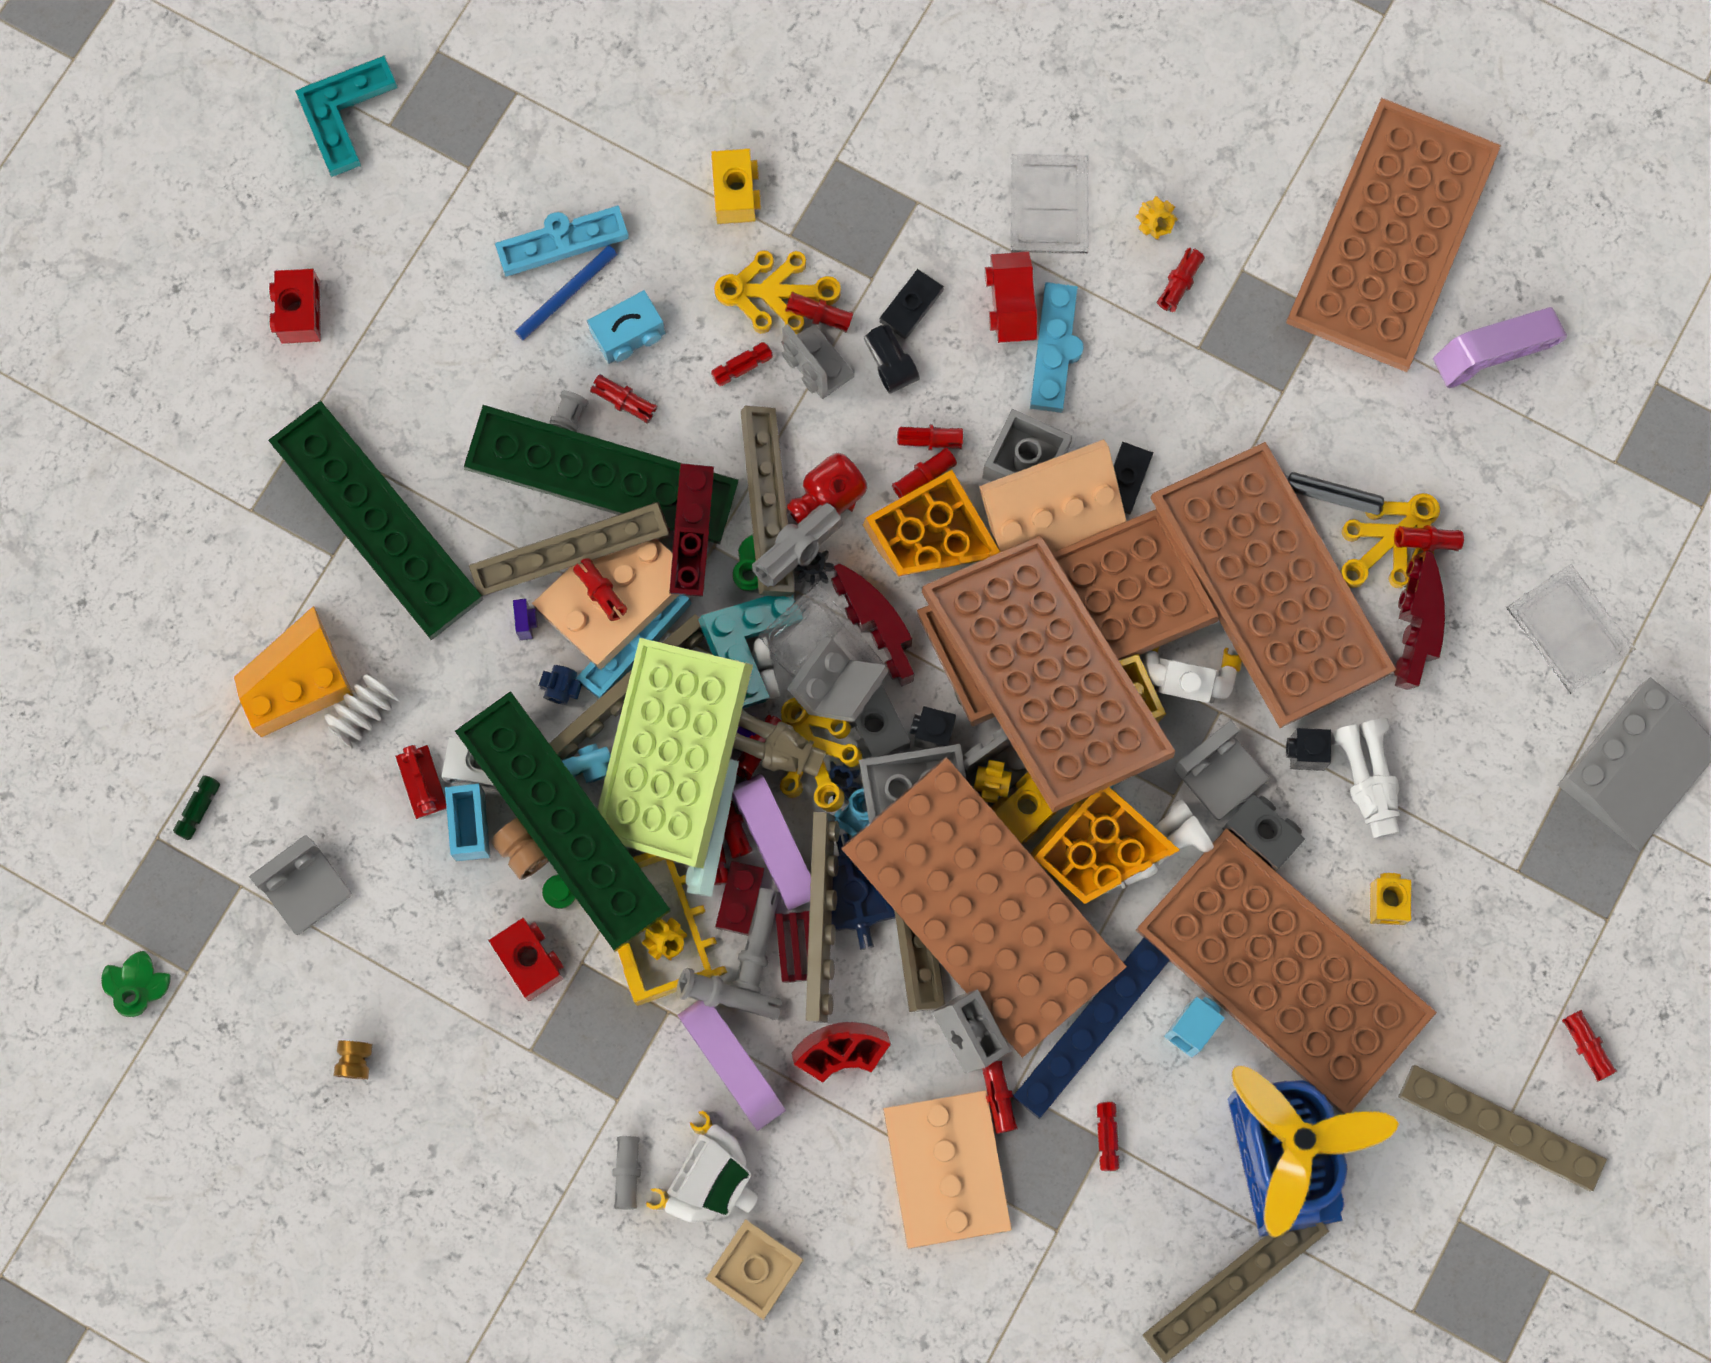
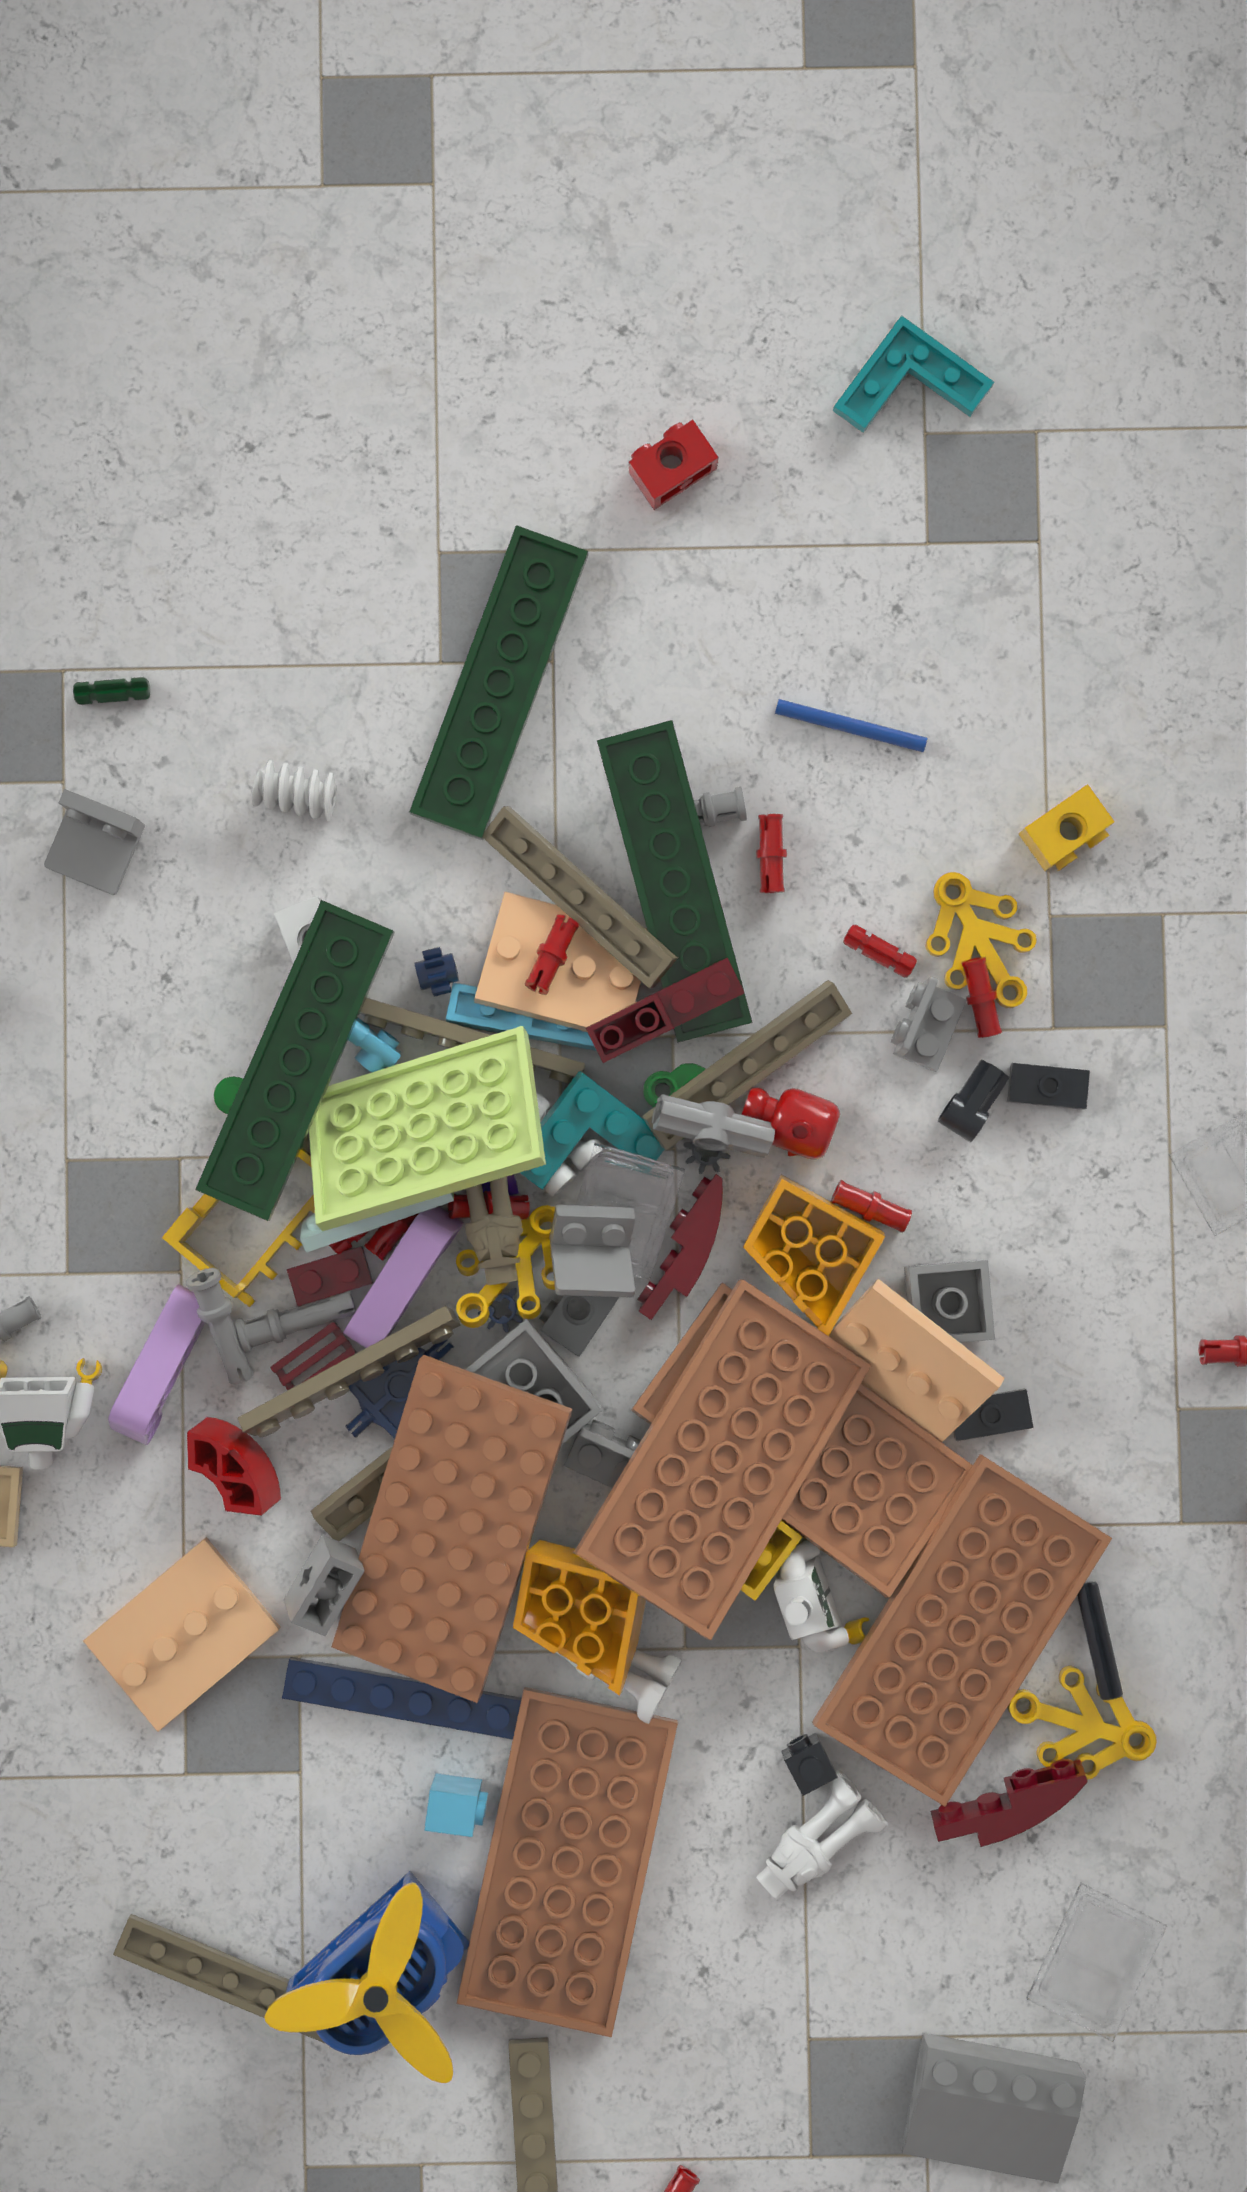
camera: 60 degrees right, 10 degrees up
(292, 677) = (293, 700): light orange wedge -> none
(421, 780) = (264, 893): red hinge -> none
(467, 822) = (244, 966): medium azure brick -> none
(518, 845) = (249, 1028): medium nougat wheel -> none
(524, 619) = (483, 895): dark purple plate -> none
(530, 979) = (128, 1116): red brick -> none
(561, 239) = (903, 687): medium azure hinge -> none
(626, 327) = (847, 811): medium azure brick -> none
(664, 939) = (243, 1230): yellow gear -> none
(853, 816) = (472, 1344): medium azure plate -> none
(930, 437) = (914, 1190): red axle -> none
(932, 728) = (607, 1371): black brick -> none
(992, 781) = (584, 1464): yellow gear -> none
(999, 1097) = (278, 1647): red pin -> none
(1012, 296) = (1116, 1187): red brick -> none
(1020, 824) = (558, 1509): yellow brick -> none
(1055, 347) = (1089, 1261): medium azure hinge -> none
(1108, 1136) = (303, 1774): red axle -> none
(1221, 772) = (734, 1686): light grey bracket -> none
(1261, 811) = (694, 1739): dark grey brick -> none
(1383, 913) = (693, 1945): yellow brick -> none
(1428, 538) = (1105, 1765): red pin -> none

